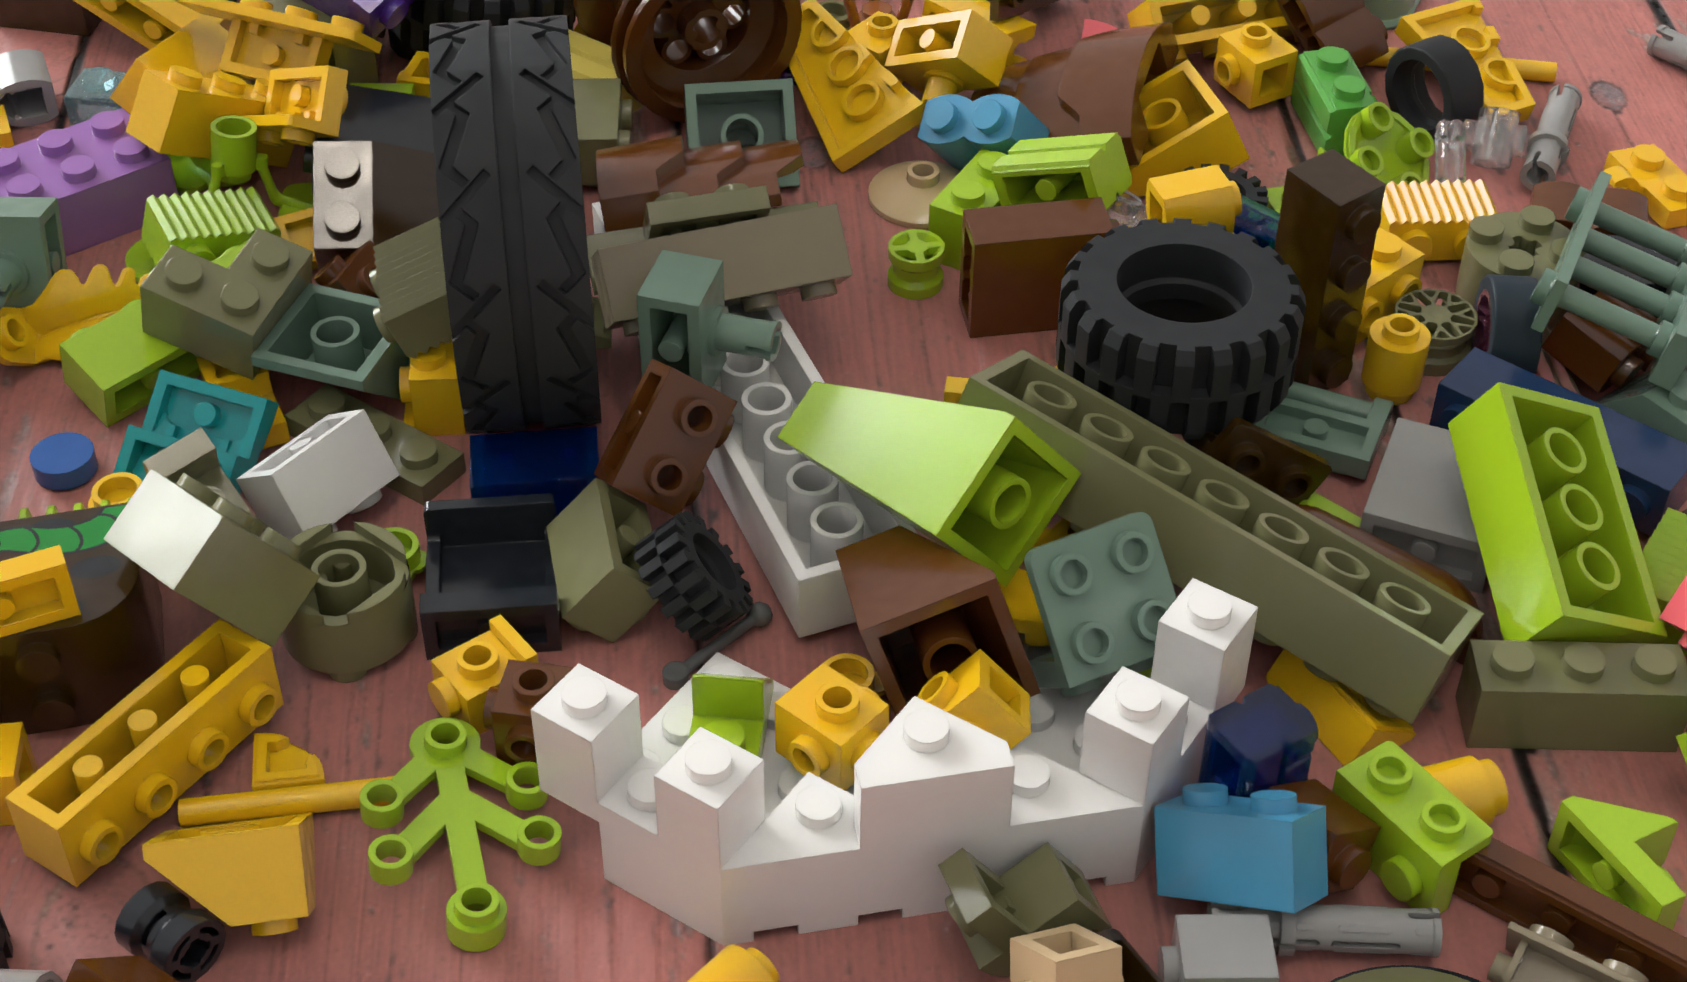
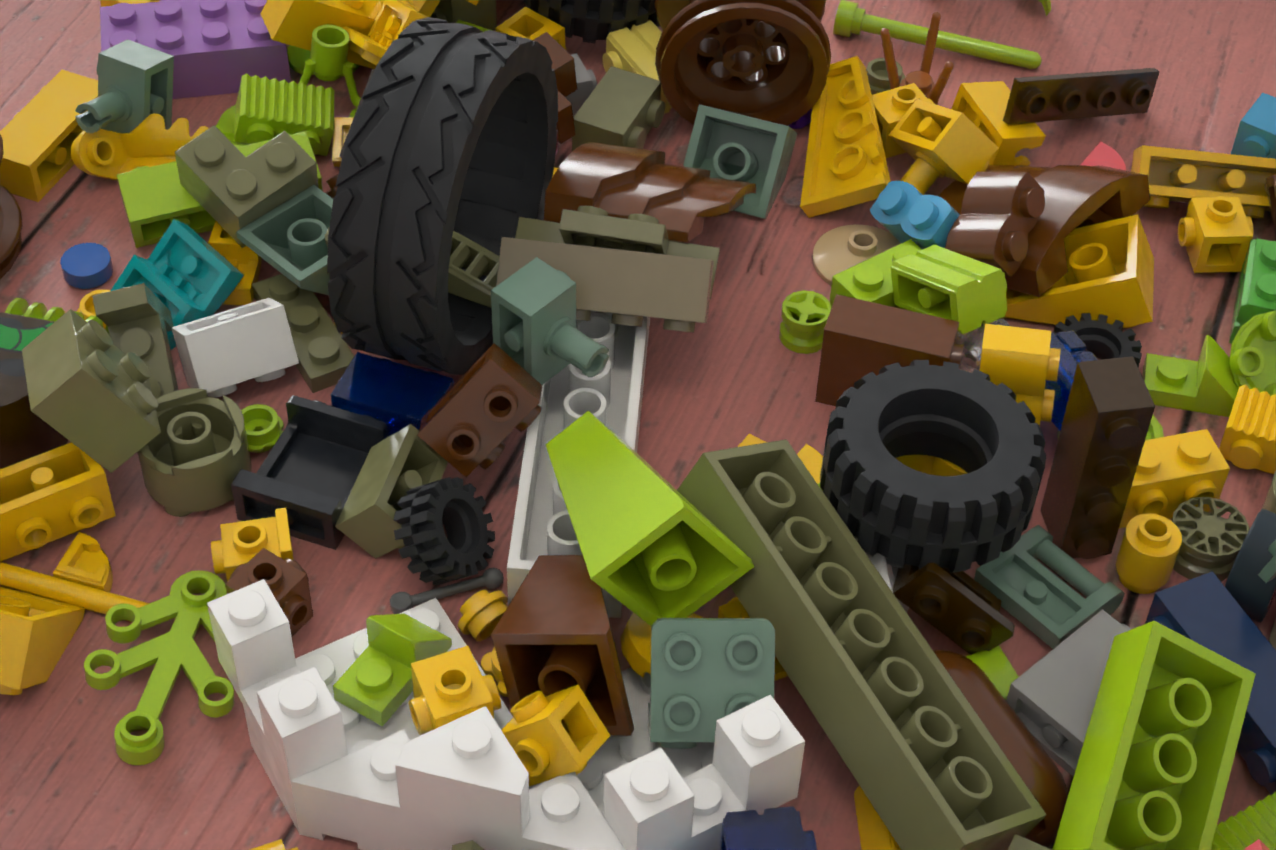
camera: 25 degrees right, 5 degrees up
(782, 647) = (482, 613): none -> yellow plate
(1067, 91) = (997, 218): none -> reddish brown brick

